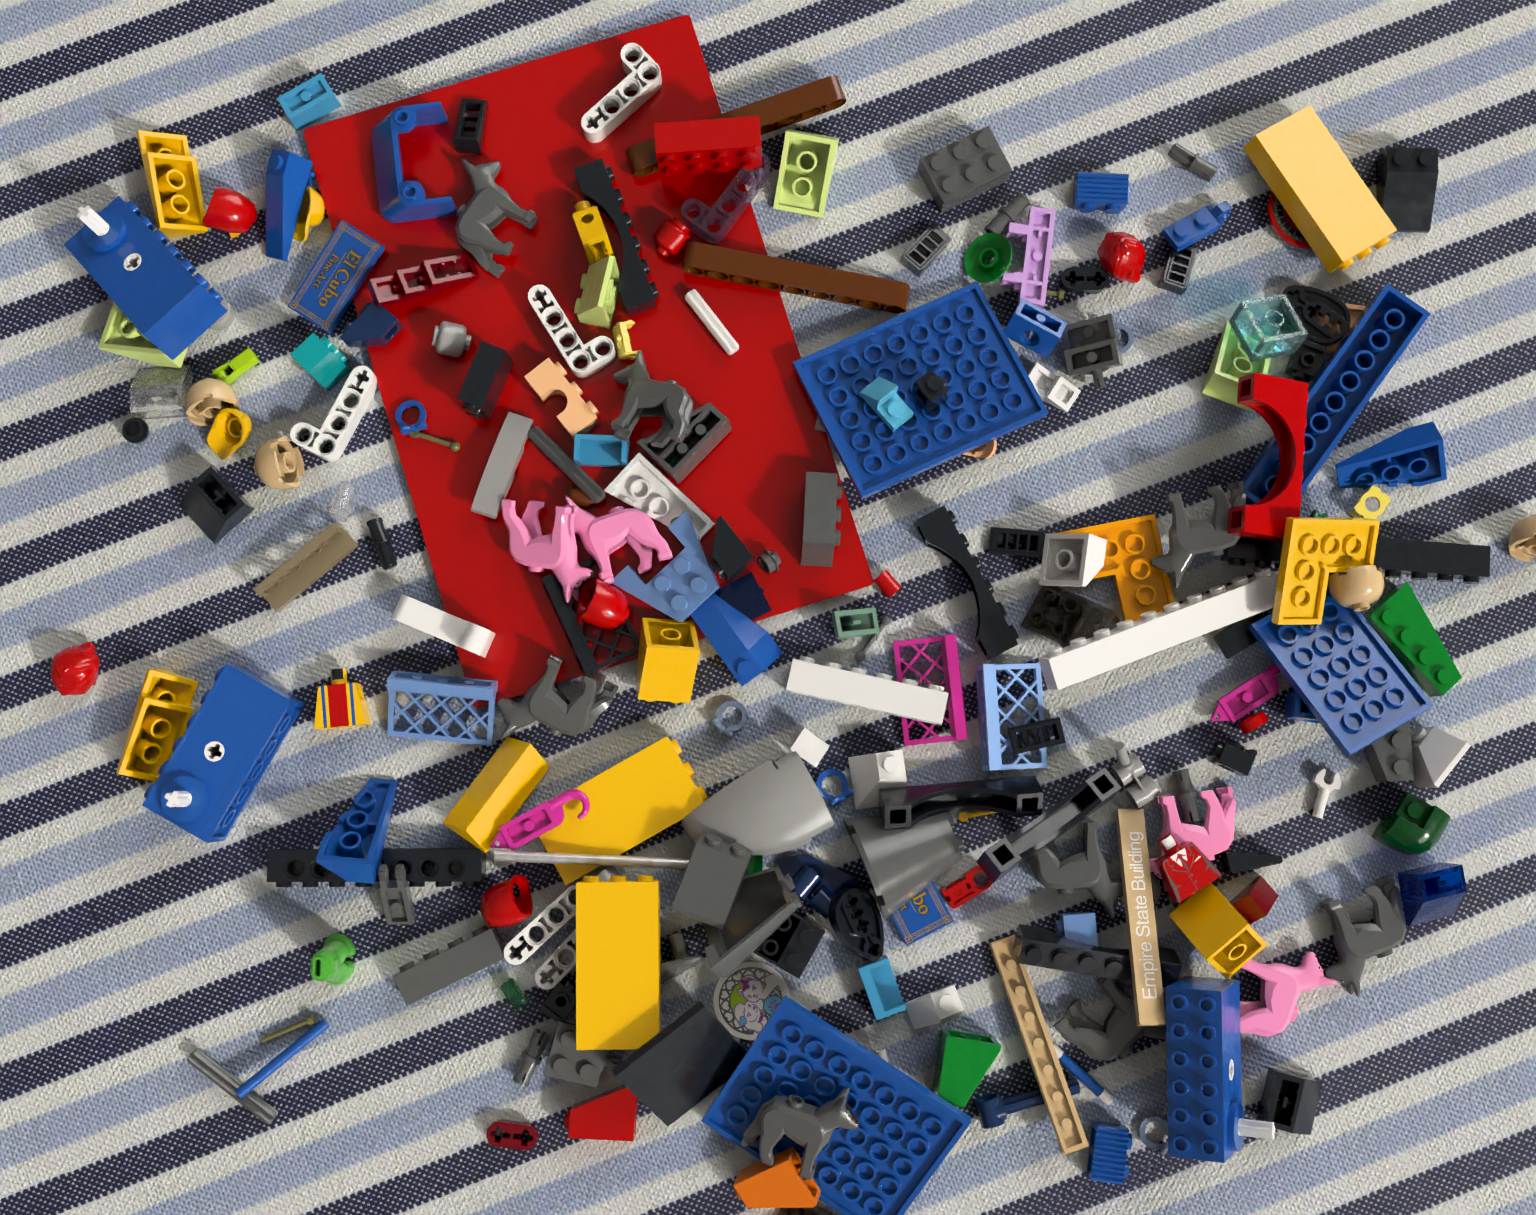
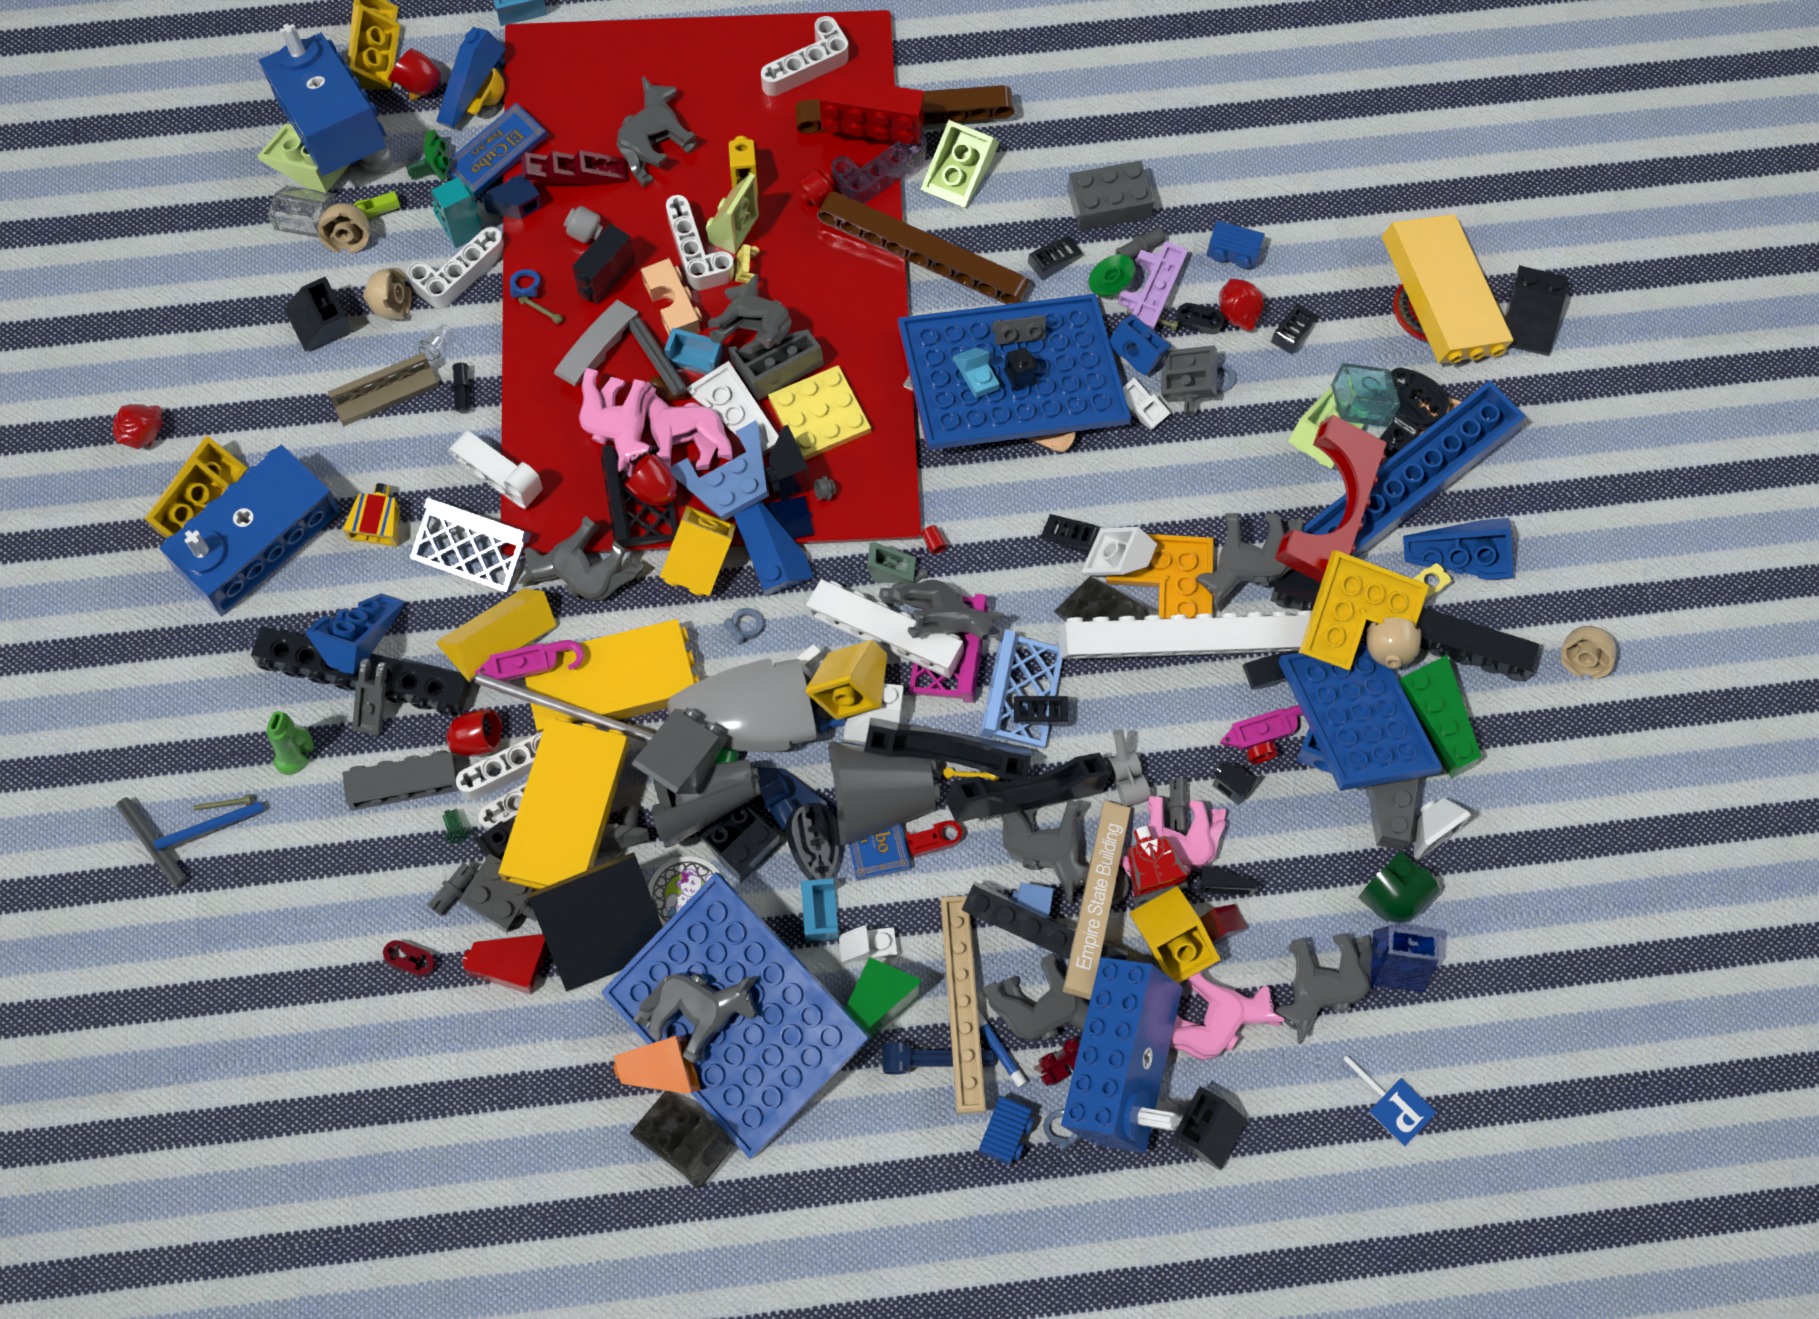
camera: 15 degrees right, 15 degrees down
(135, 430) = (265, 237): black plate -> none
(229, 432) = (352, 256): yellow cap -> none
(268, 312) = (419, 168): none -> clear green piece
(276, 297) = (435, 154): none -> green slope
(399, 199) = (579, 97): blue windscreen -> none
(467, 141) = (664, 54): black slope -> none
(633, 285) = (768, 216): black arch -> none
(711, 322) = (832, 269): white axle -> none
(741, 481) = (820, 412): none -> light yellow plate
(820, 519) = (882, 461): dark grey wedge -> none
(850, 757) = (850, 680): none -> yellow slope
(922, 662) = (942, 610): none -> dark grey animal
(924, 341) = (1019, 329): none -> dark grey hinge
(941, 535) = (998, 508): black arch -> none
(1134, 1078) = (1053, 1064): none -> dark red hinge
(1192, 162) = (1331, 240): dark grey axle -> none
(1196, 226) = (1321, 295): blue hinge -> none
(1324, 790) = (1318, 840): white bar -> none
(1455, 1032) = (1399, 1110): none -> blue piece

